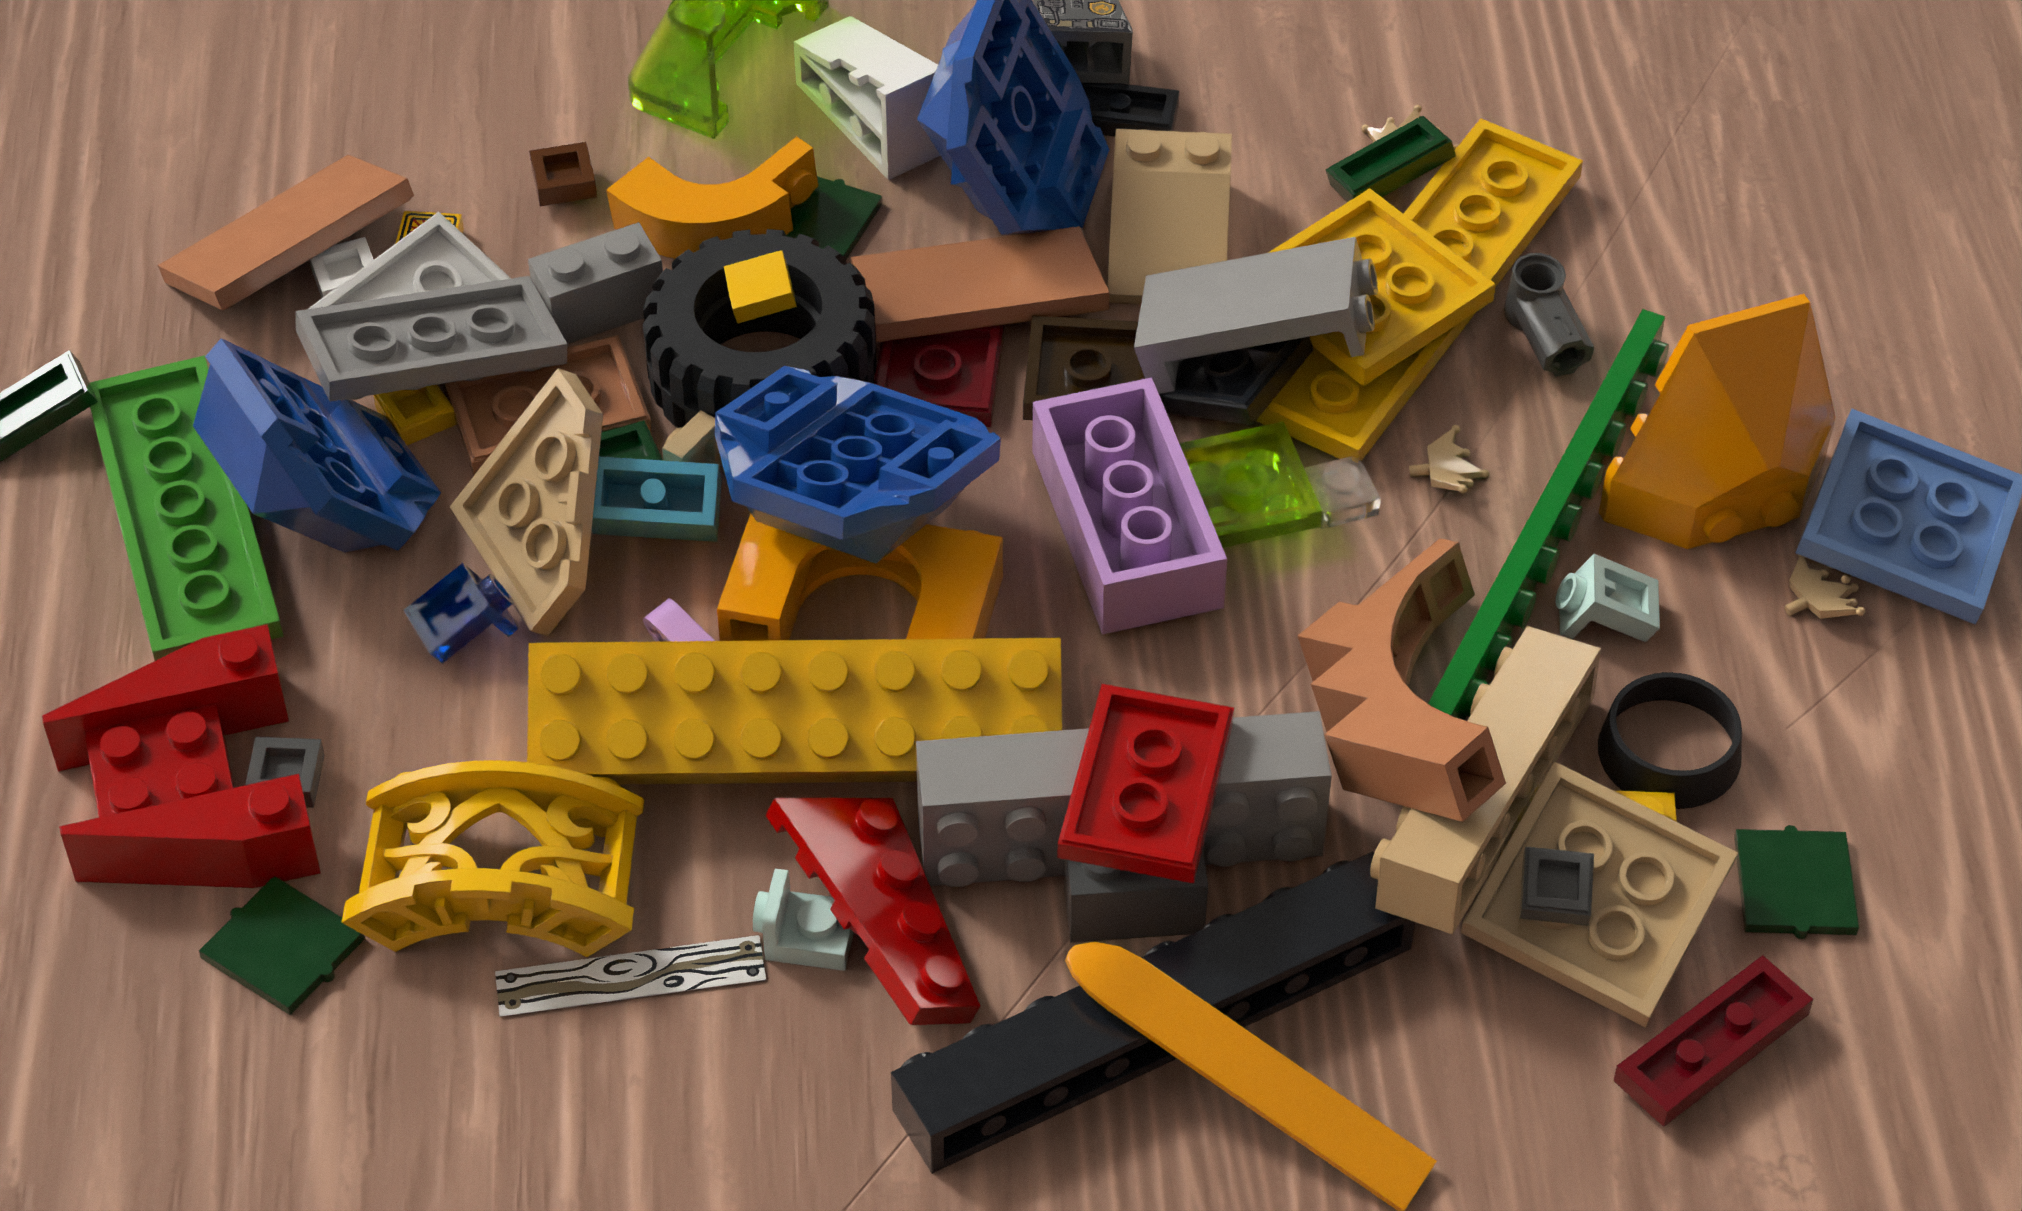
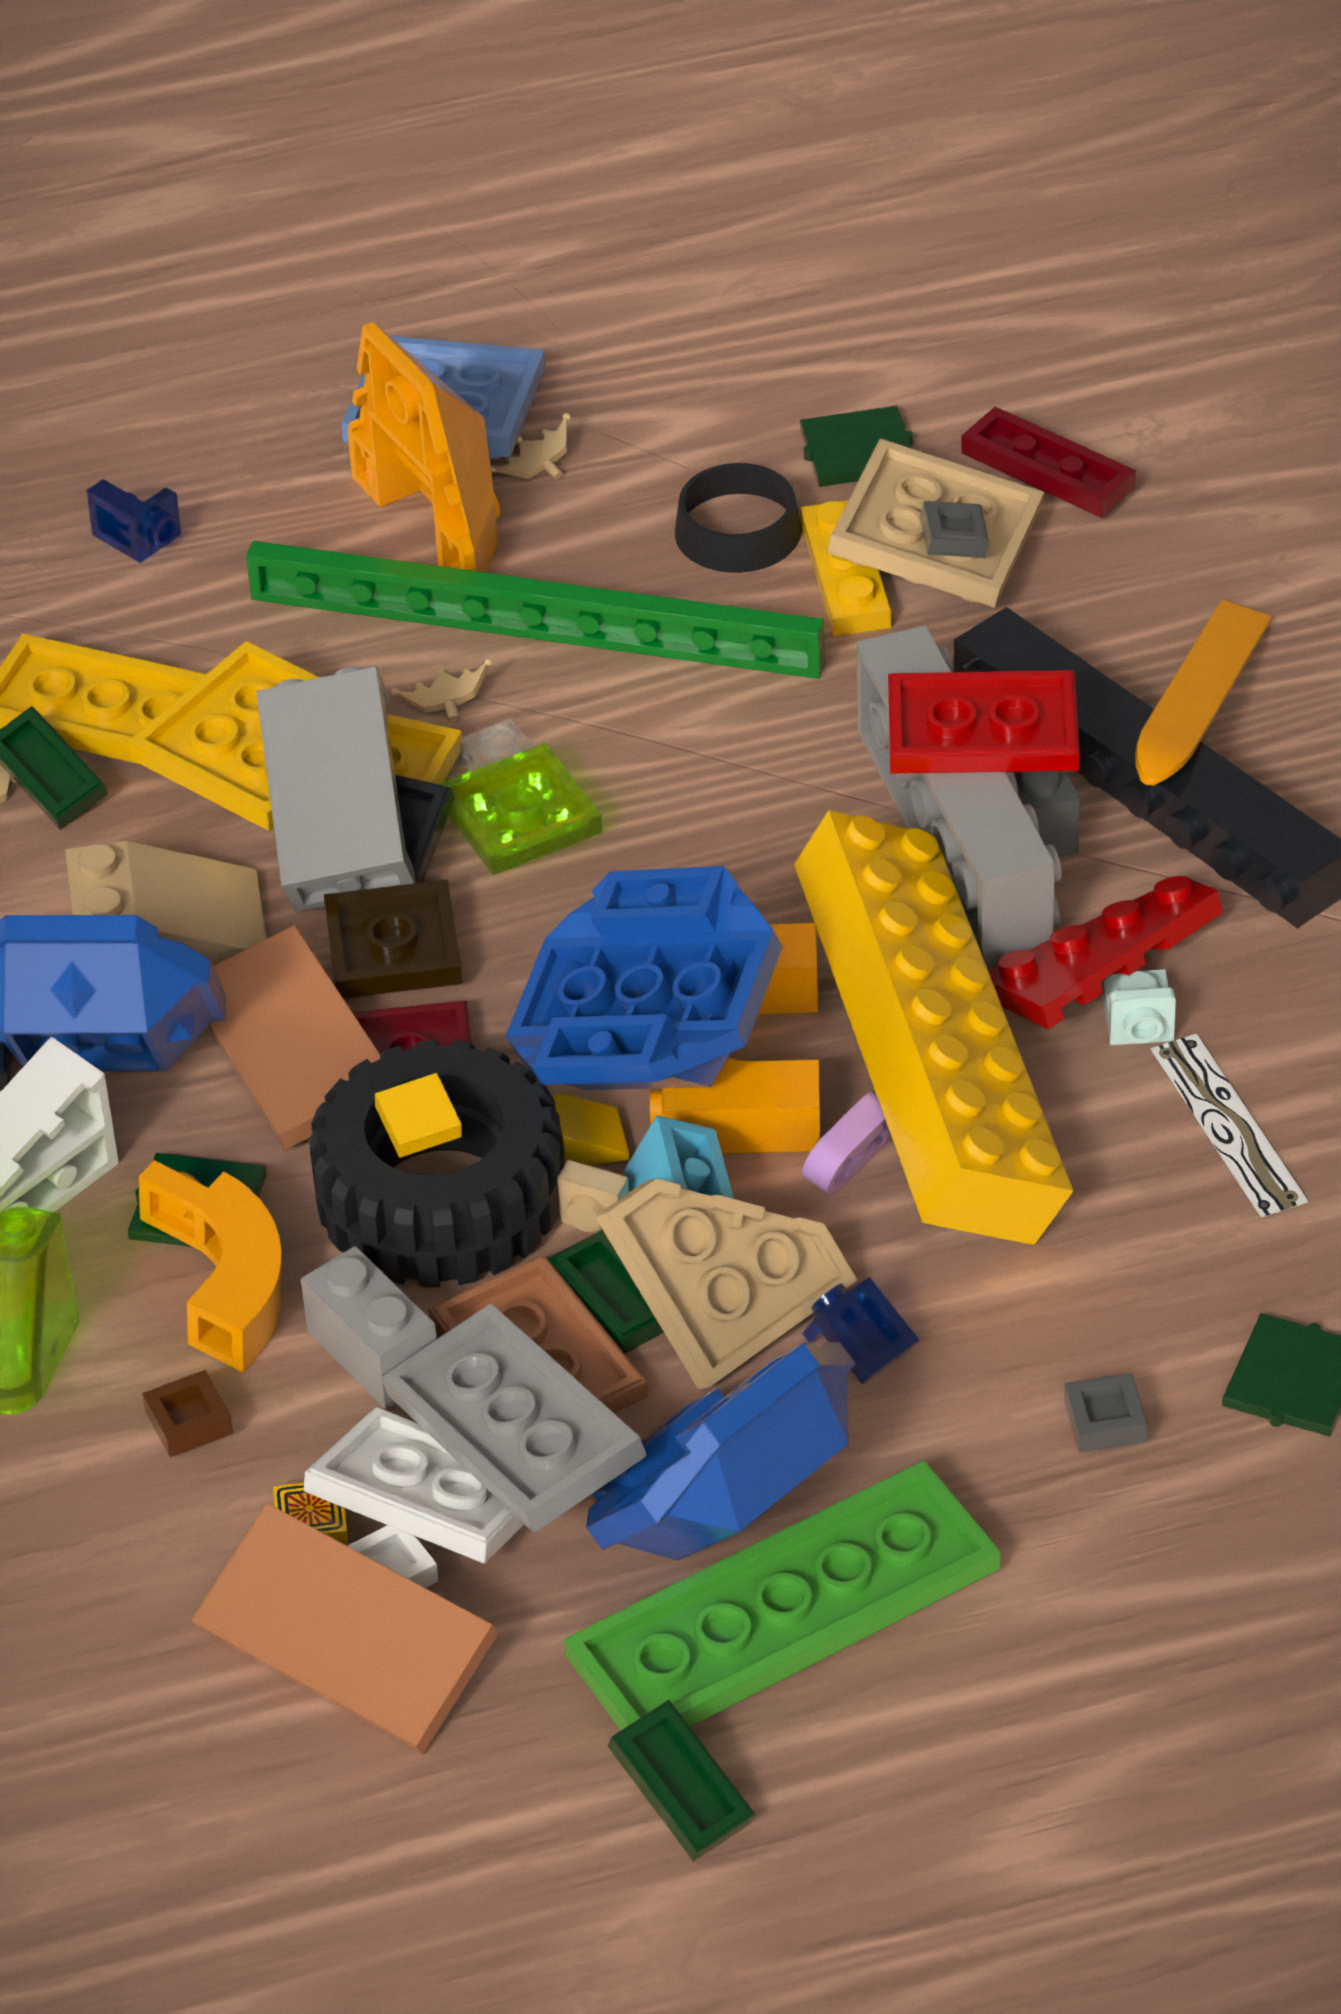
camera: 100 degrees left, 5 degrees down
(168, 775) = (1146, 1499): red wedge -> none
(445, 800) = (1229, 1253): yellow fence -> none
(1128, 506) = (544, 860): lavender brick -> none
(1376, 727) = (873, 593): nougat arch -> none
(1531, 711) = (861, 574): tan brick -> none
(1545, 314) = (218, 632): dark grey piece -> none
(1610, 597) = (597, 560): light aqua bracket -> none
(1746, 255) = (130, 524): none -> clear blue bracket

